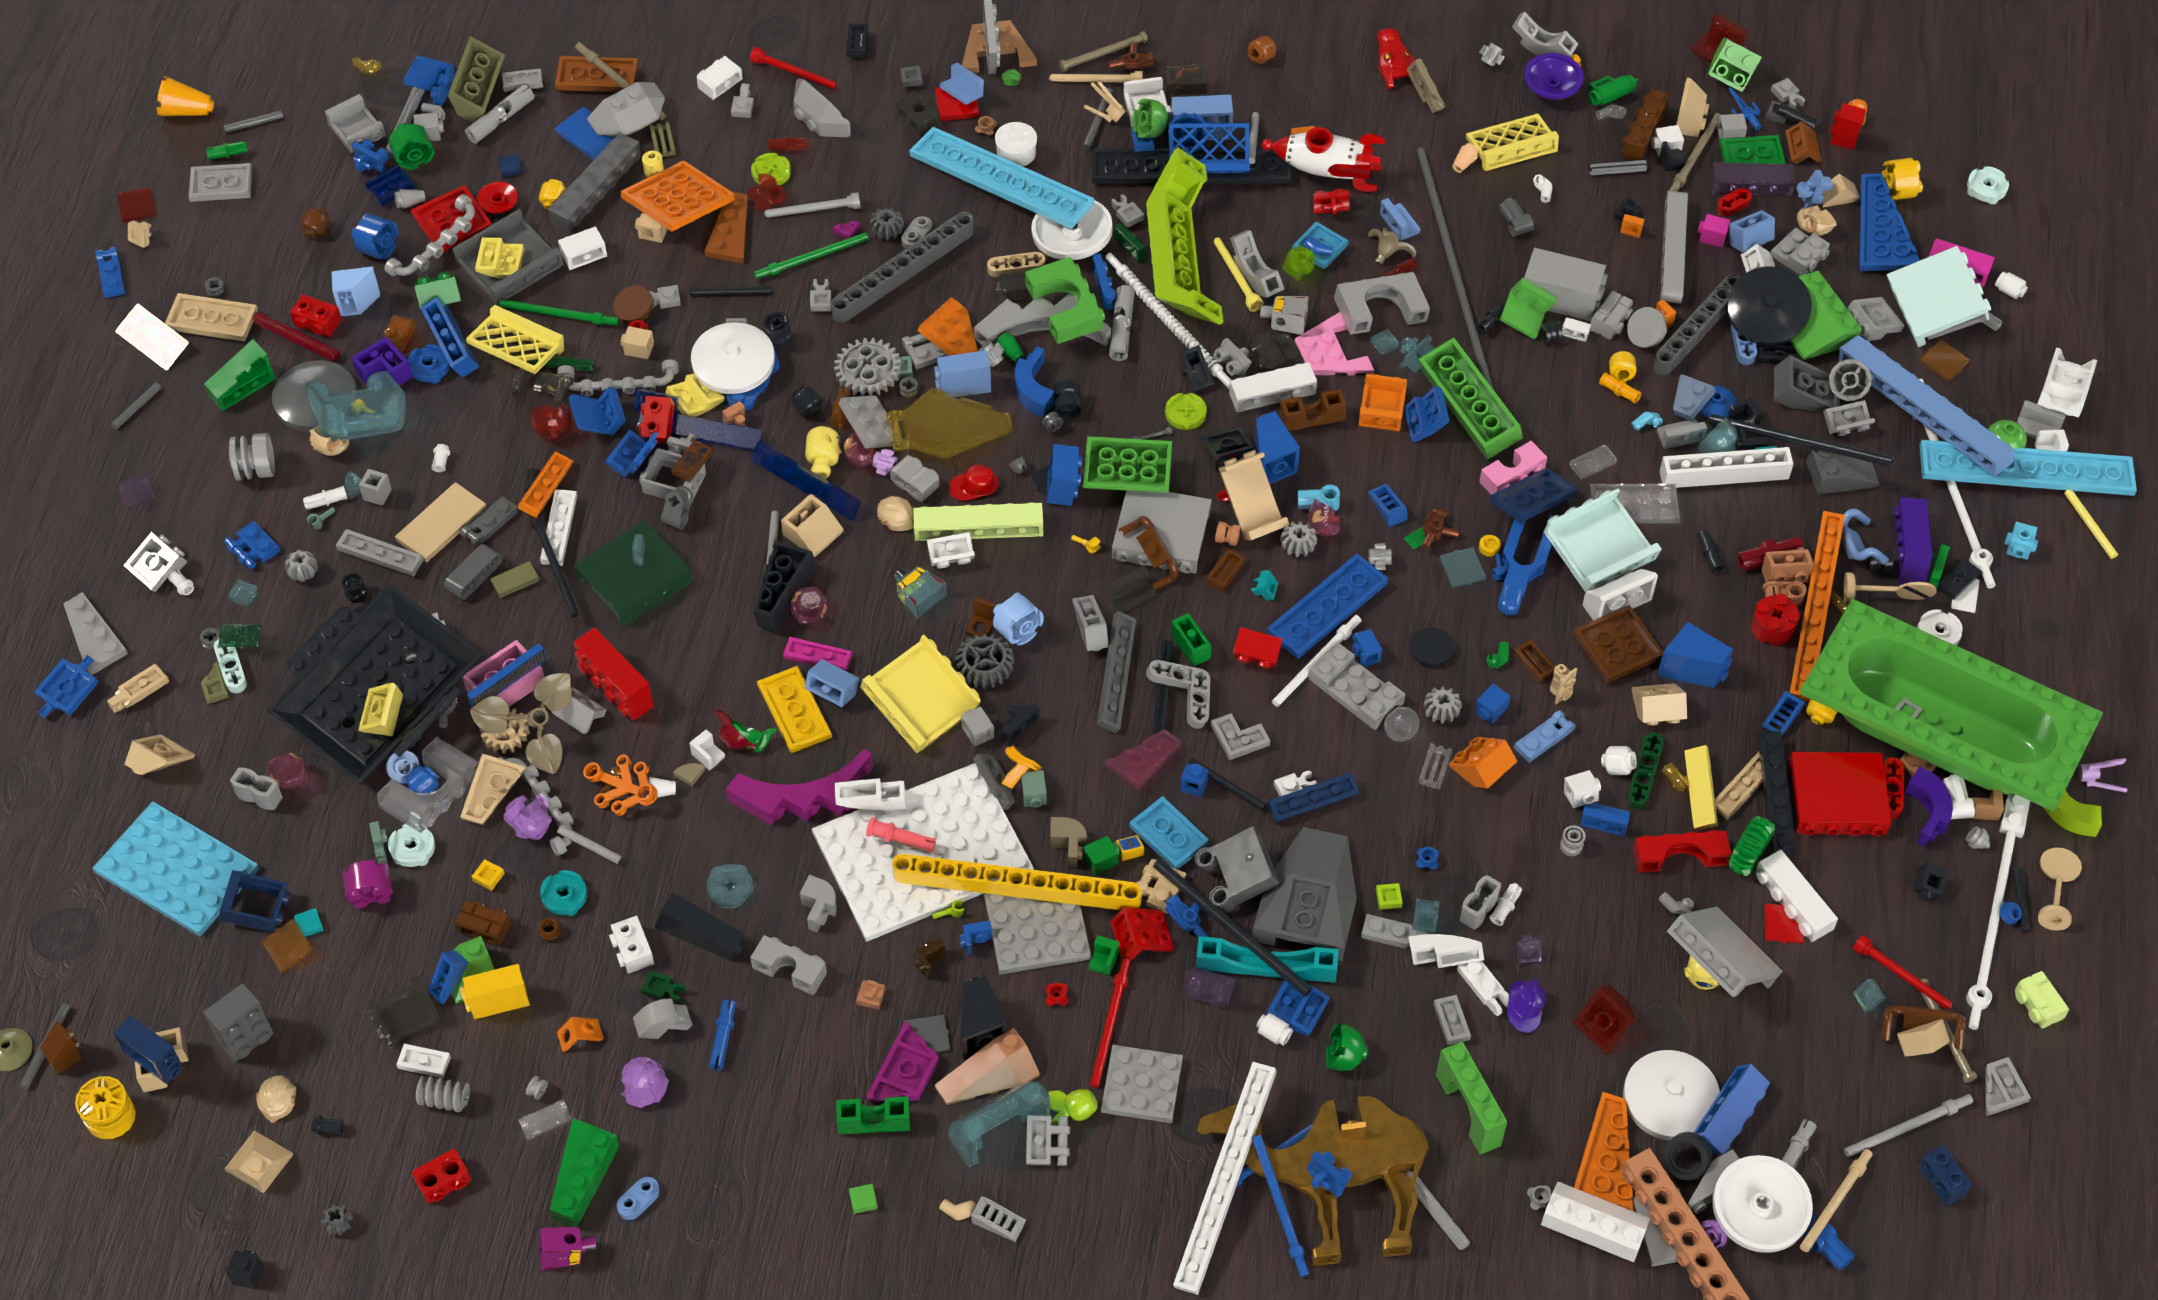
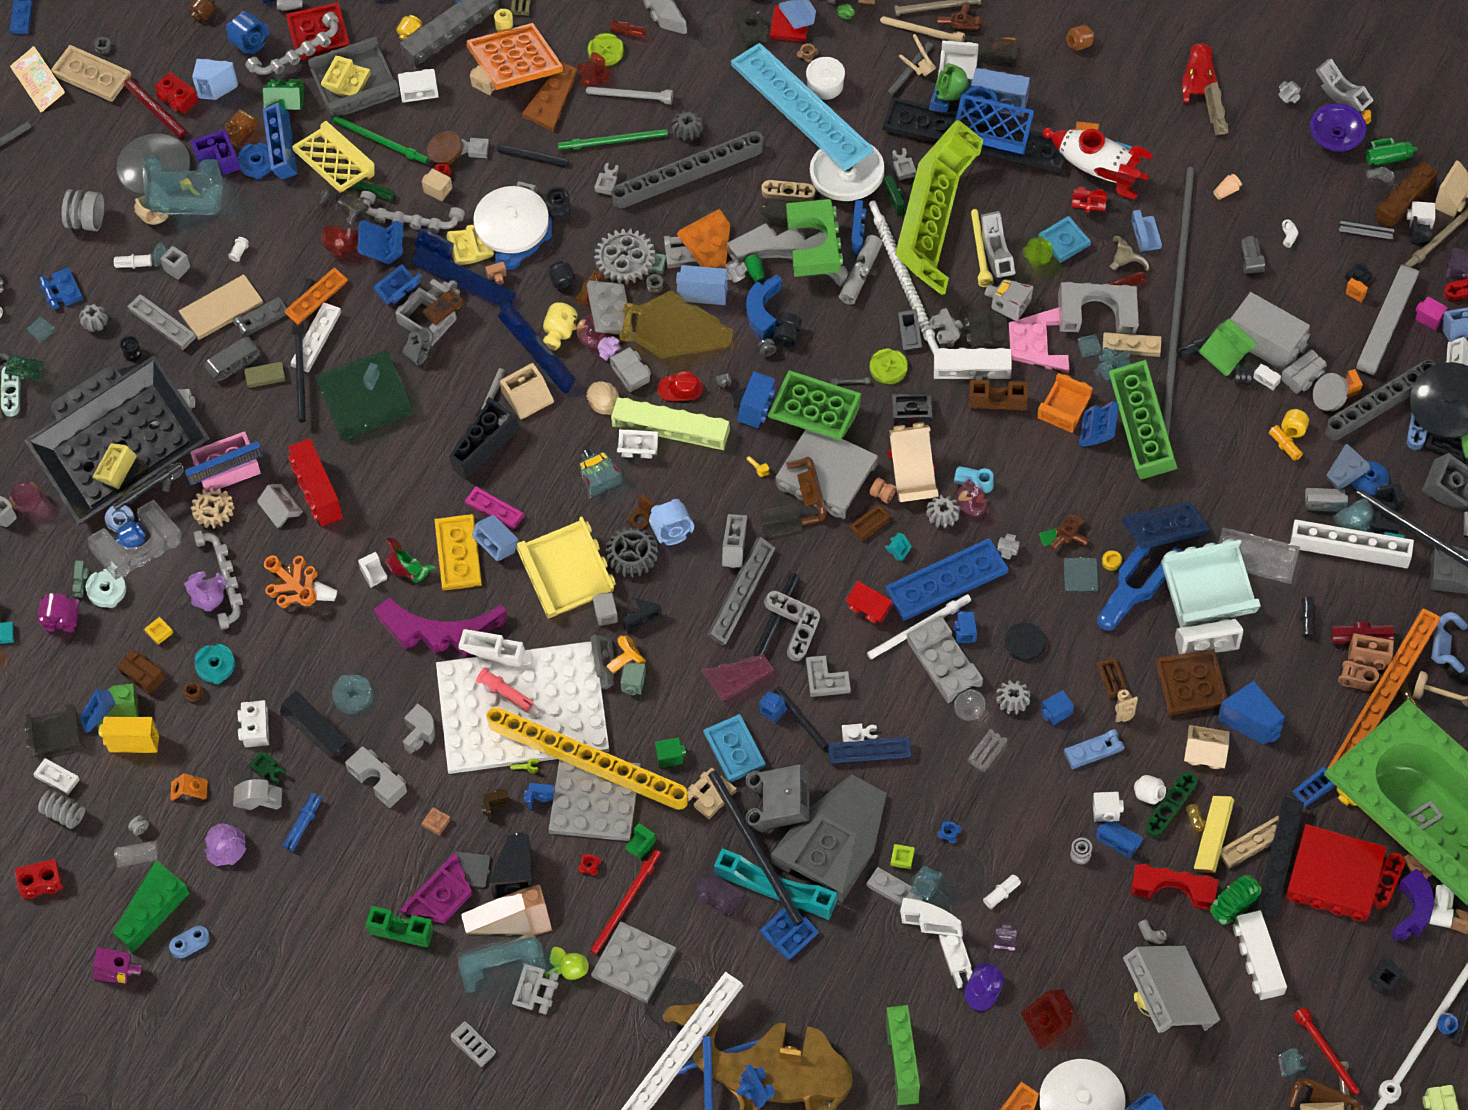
camera: 20 degrees right, 5 degrees up
(240, 376) = (96, 134): green wedge -> none
(316, 520) = (122, 279): sand green hand -> none
(489, 787) = (182, 555): tan wing -> none
(497, 197) = (362, 14): red dish -> none
(545, 751) = (236, 535): dark tan plant -> none
(589, 844) = (248, 626): light grey bar -> none
(657, 417) = (428, 260): red brick -> none
(689, 773) = (352, 585): dark tan tile -> none
(808, 605) = (499, 462): clear pink hair -> none
(846, 230) = (652, 122): magenta tile -> none
(863, 1198) = (369, 994): bright green tile -> none
(917, 229) = (712, 138): light grey plate -> none
(958, 1211) = (443, 1028): tan arm -> none
(1068, 834) = (649, 728): dark tan brick -> none
(1130, 847) = (697, 752): yellow slope -> none
(1141, 930) = (680, 829): red bracket -> none
(1185, 916) = (721, 827): blue piece -> none
(1191, 640) = (814, 580): green brick -> none
(1253, 137) = (1040, 122): light grey bar -> none
(1274, 1029) = (760, 946): white brick -> none
(1278, 447) = (949, 424): blue slope -> none
(1316, 247) = (1056, 241): blue arm -> none
(1346, 1049) = (814, 981): green cylinder -> none
(1398, 510) = (1038, 510): blue slope -> none
(1437, 328) = (1135, 344): none -> tan plate
(1452, 1019) = (916, 981): light grey plate -> none
(1480, 902) = (974, 885): light grey brick -> none
(1483, 761) = (1029, 758): orange slope -> none
(1499, 572) = (1111, 587): blue hand -> none
(1501, 658) = (1083, 667): green arm -> none
(1515, 150) = (1278, 191): light yellow fence -> none
(1528, 461) = (1175, 492): bright pink arch -> none
(1593, 462) = (1234, 506): clear plate -> none
(1647, 418) = (1298, 477): medium azure arm -> none
(1775, 620) = (1340, 697): red brick -> none
(1780, 927) = (1237, 978): red piece -> none
(1978, 838) = (1446, 948): light grey plate -> none

